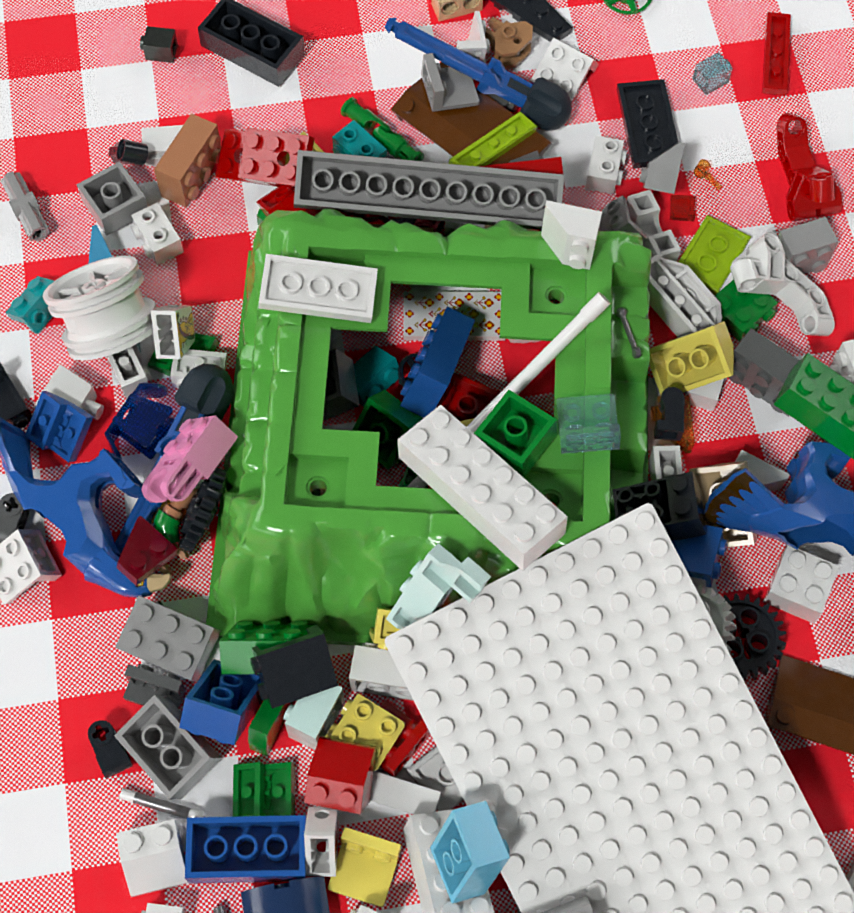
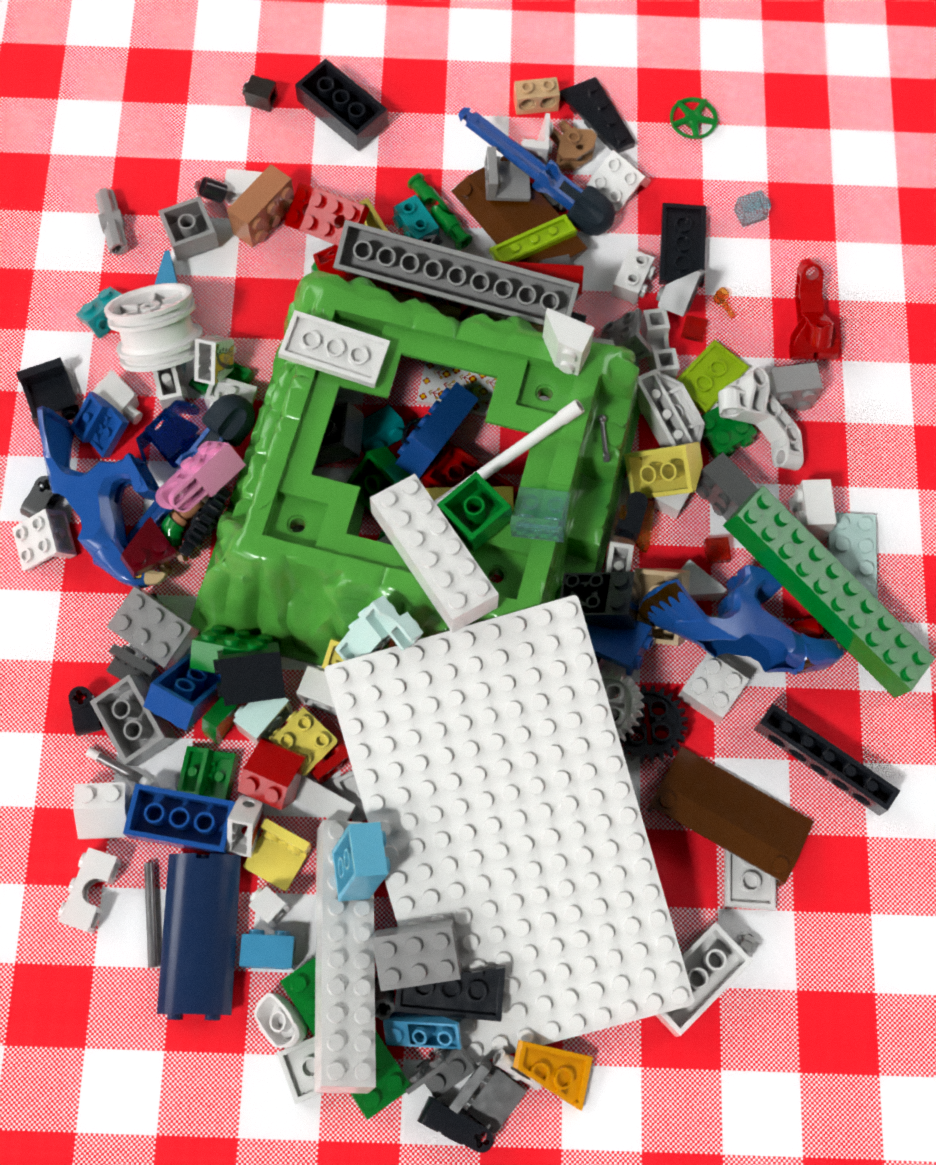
camera: 10 degrees right, 5 degrees up
(157, 234) = (221, 267): white brick -> none
(766, 435) = (717, 550): none -> clear red plate
(776, 53) = (816, 200): red plate -> none

